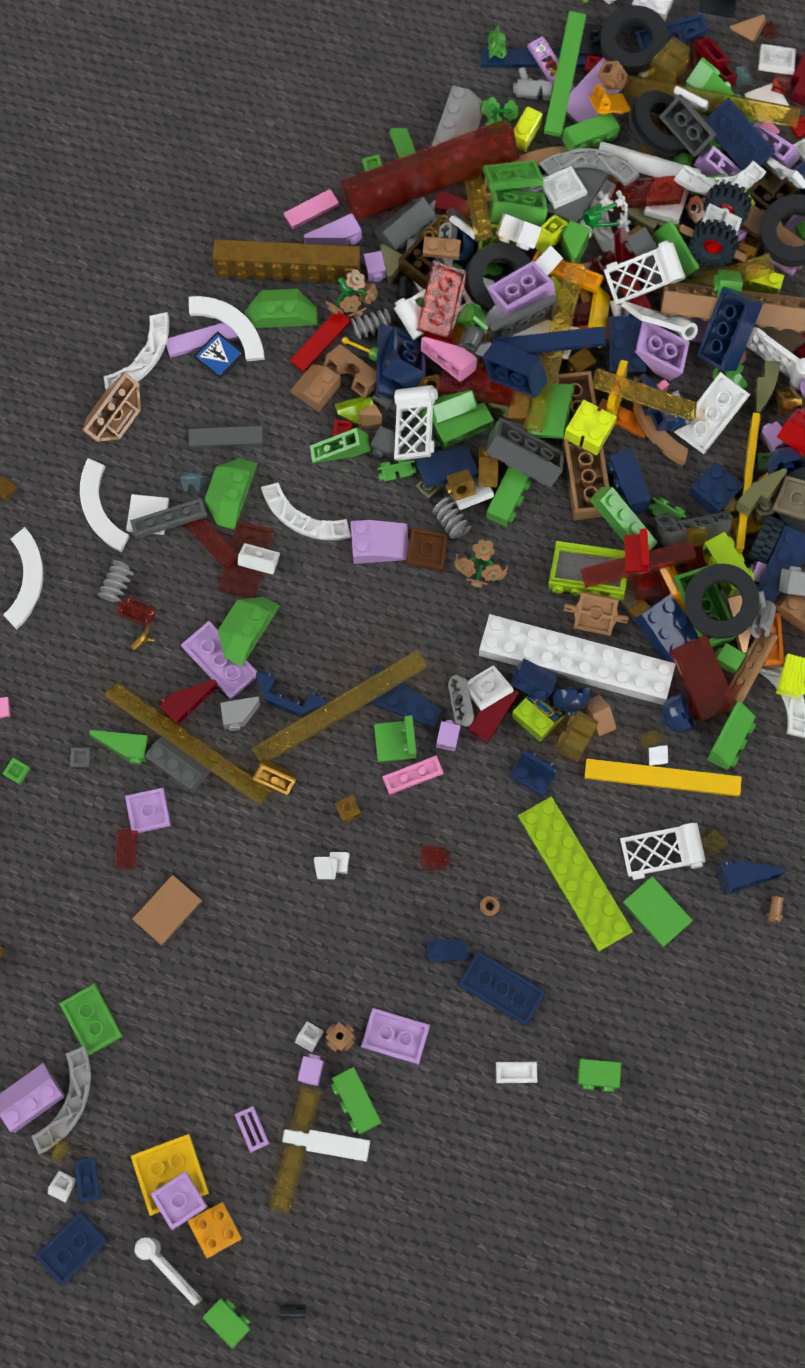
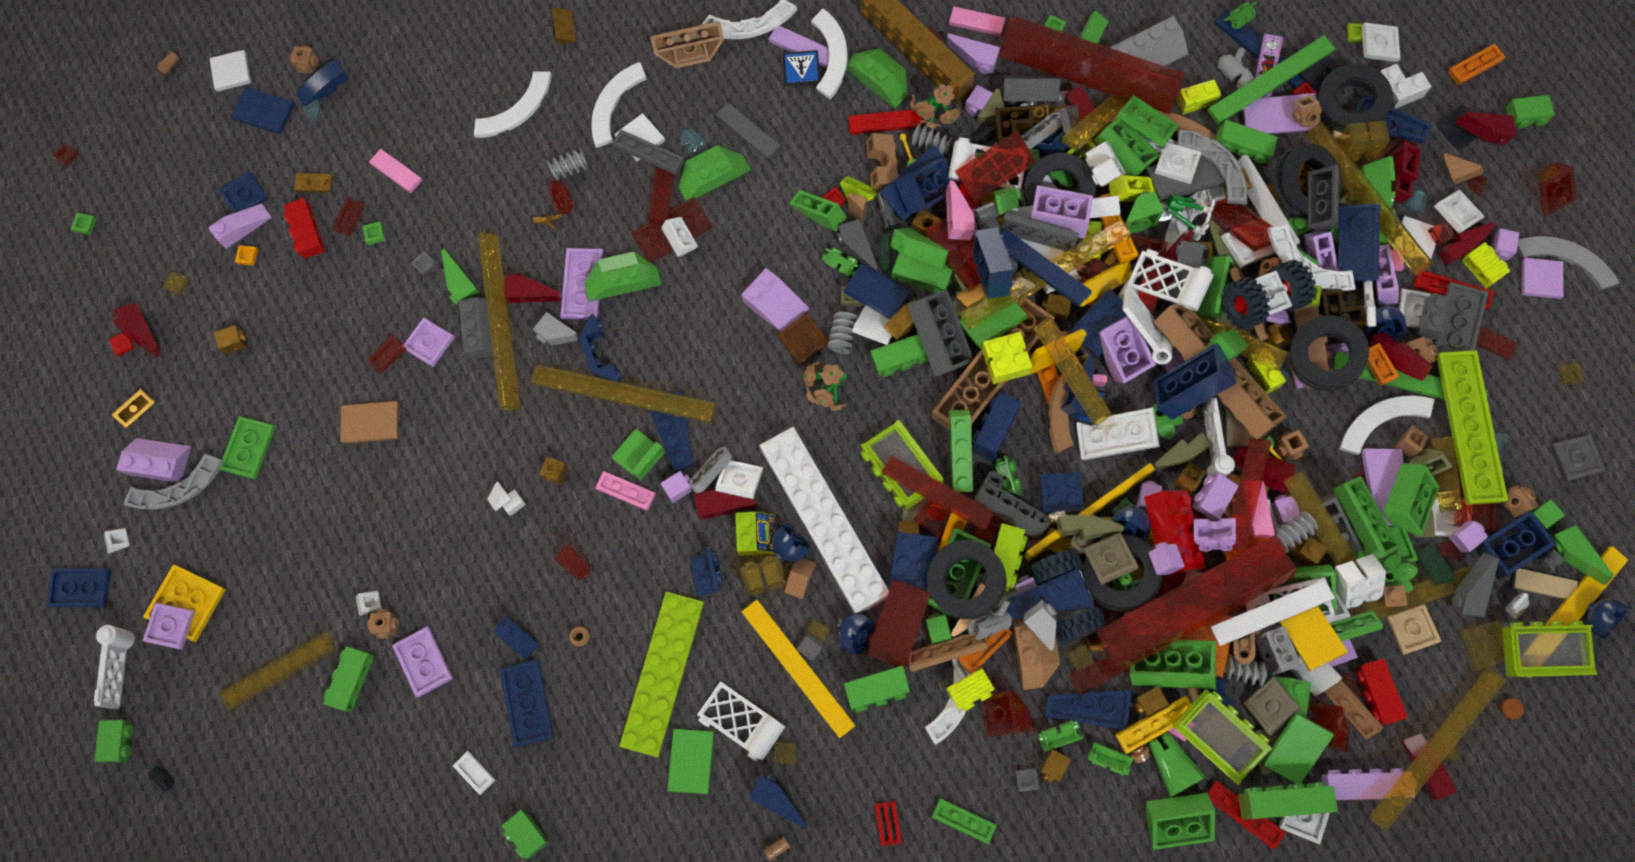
camera: 50 degrees right, 0 degrees up
(60, 1151) = (136, 515): clear yellow tile -> none
(87, 1179) = (133, 552): dark blue plate -> none
(214, 1230) = (171, 670): light orange hinge -> none
(258, 1145) = (272, 632): lavender tile -> none
(274, 776) = (531, 399): pearl gold slope -> none
(300, 522) = (735, 235): white tile -> none
(311, 1070) = (342, 627): lavender brick -> none
(316, 386) = (847, 152): medium nougat slope -> none
(329, 1144) = (301, 690): white piece -> none
(408, 400) = (898, 221): white piece -> none
(441, 248) = (1034, 127): medium nougat plate -> none
(460, 485) = (870, 313): pearl gold brick -> none
(491, 108) = (1188, 60): bright green plant -> none
(533, 680) = (775, 505): dark blue brick -> none
(596, 613) = (873, 500): medium nougat plate -> none
(608, 103) = (1282, 130): light orange hinge -> none
(637, 551) = (944, 482): red panel -> none
(695, 101) = (1348, 180): white tile -> none
(697, 535) = (1005, 514): clear yellow tile -> none

